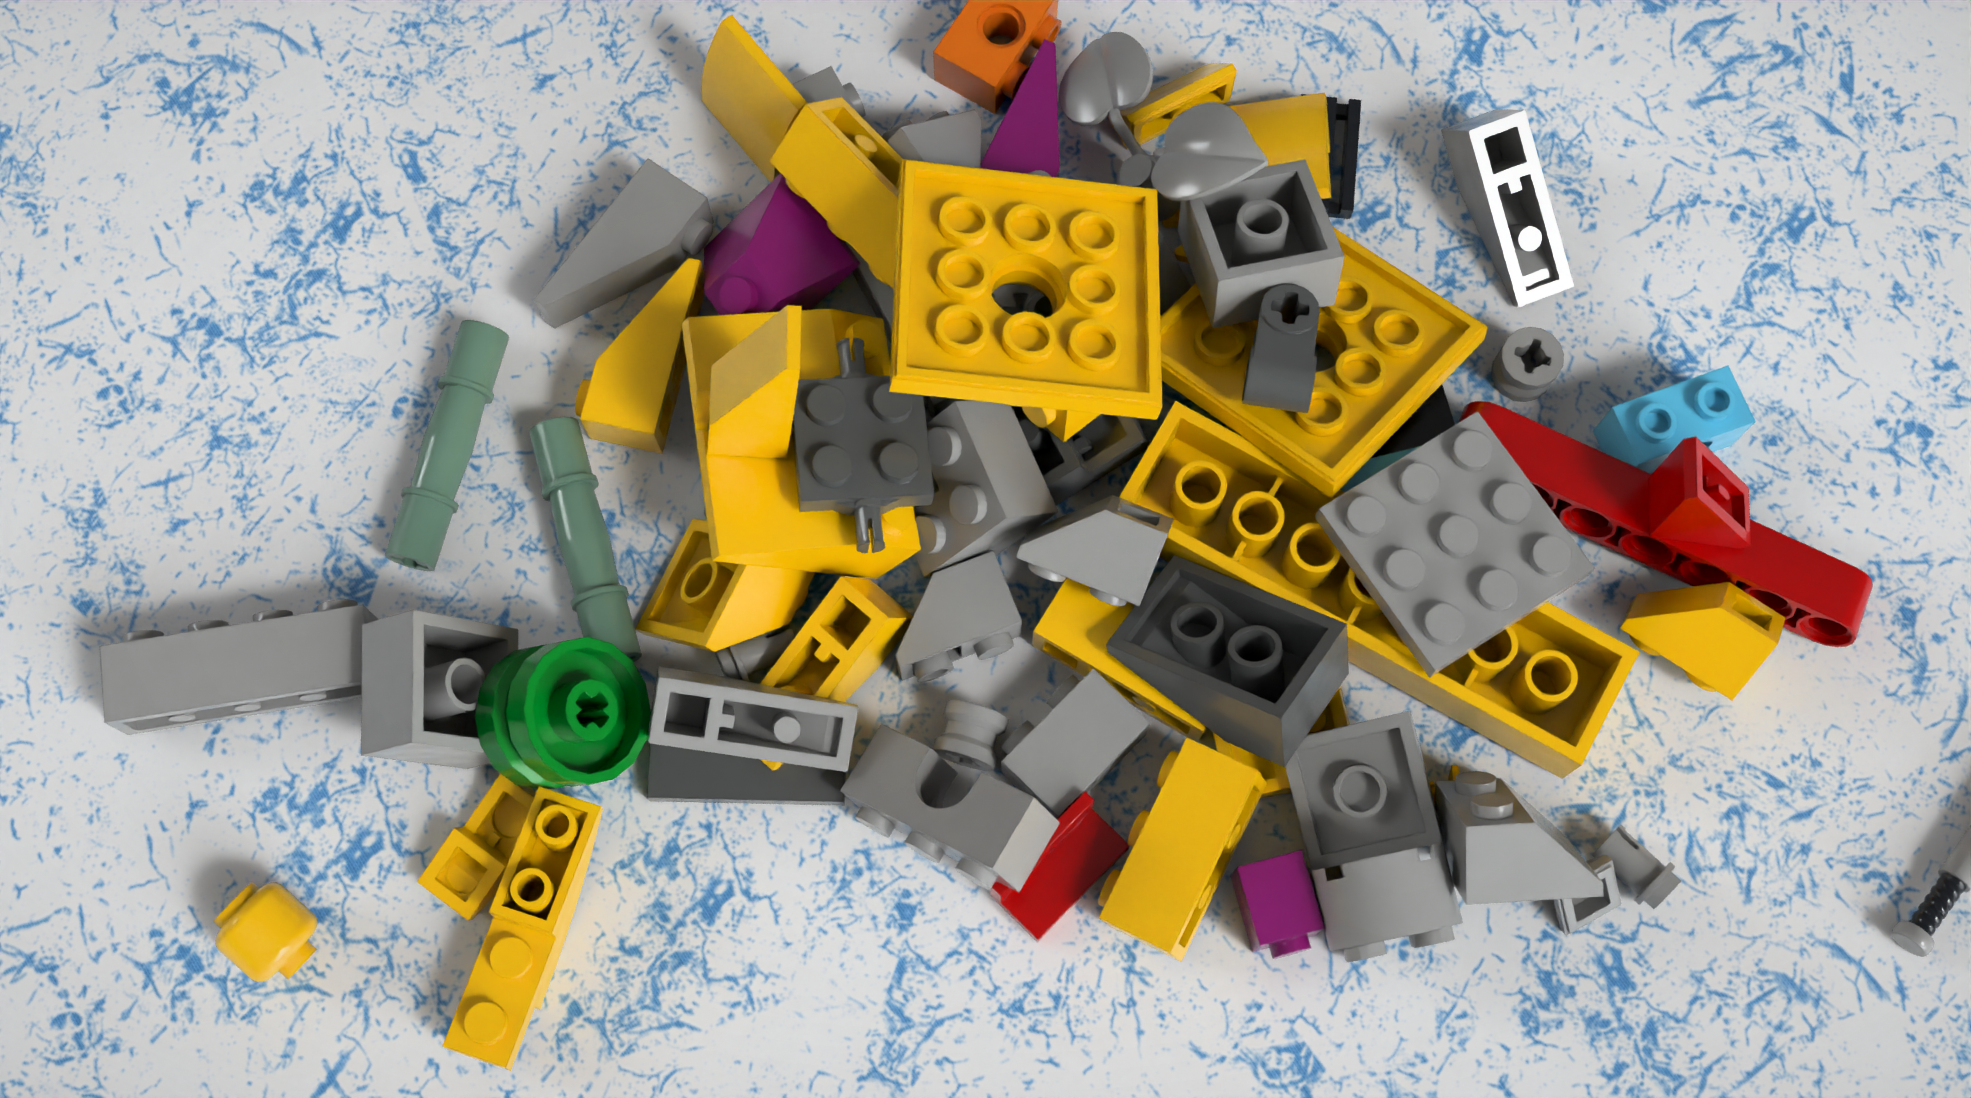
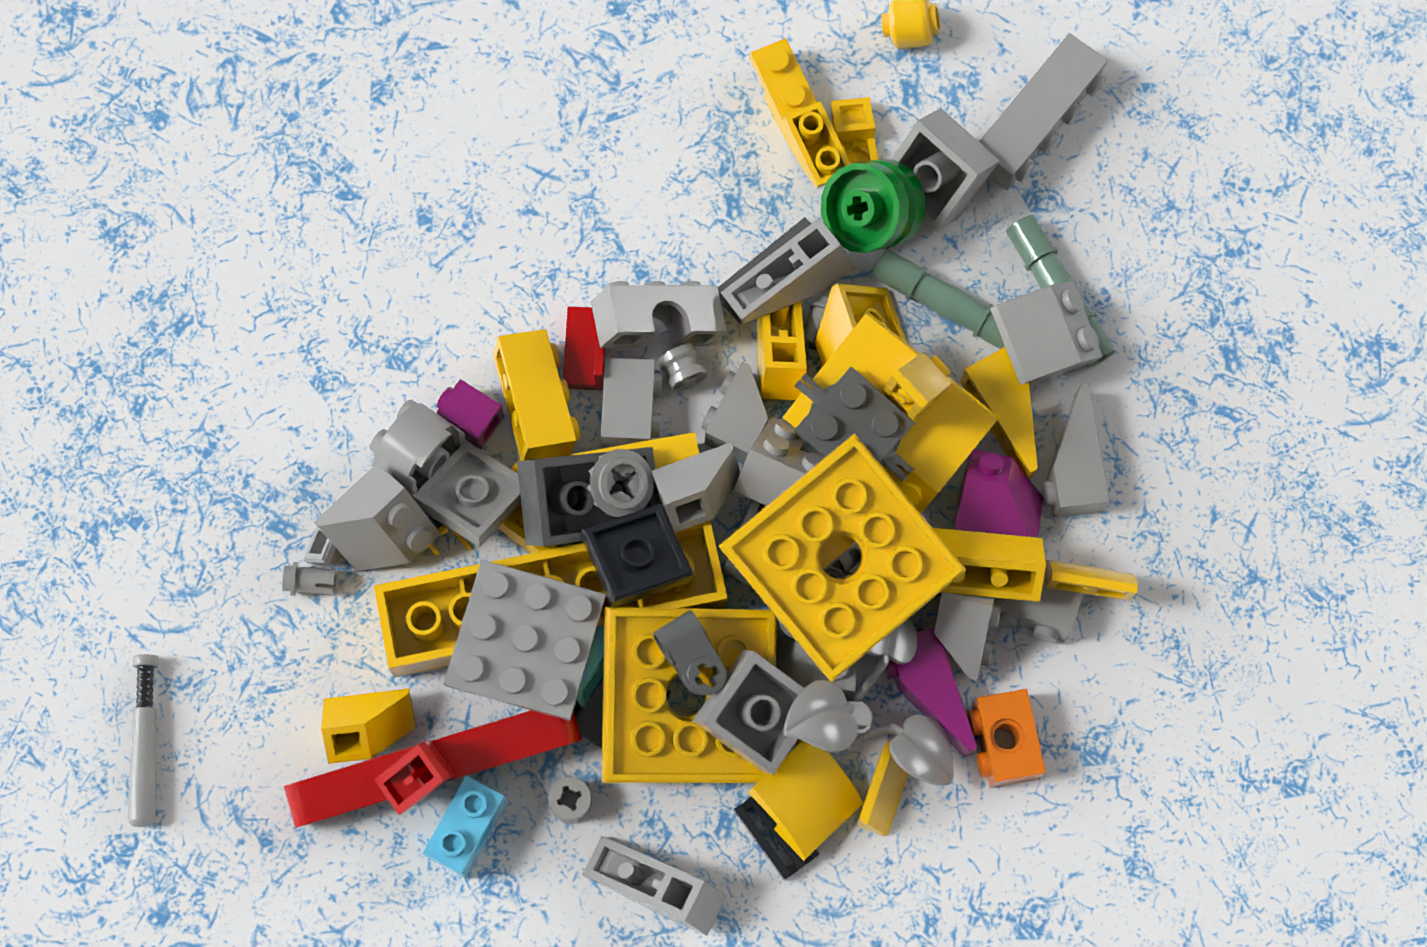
camera: 135 degrees right, 0 degrees up
(521, 389) = (1046, 332): none -> light grey slope
(1162, 614) = (638, 484): none -> light grey gear
(1244, 521) = (636, 555): none -> black tile

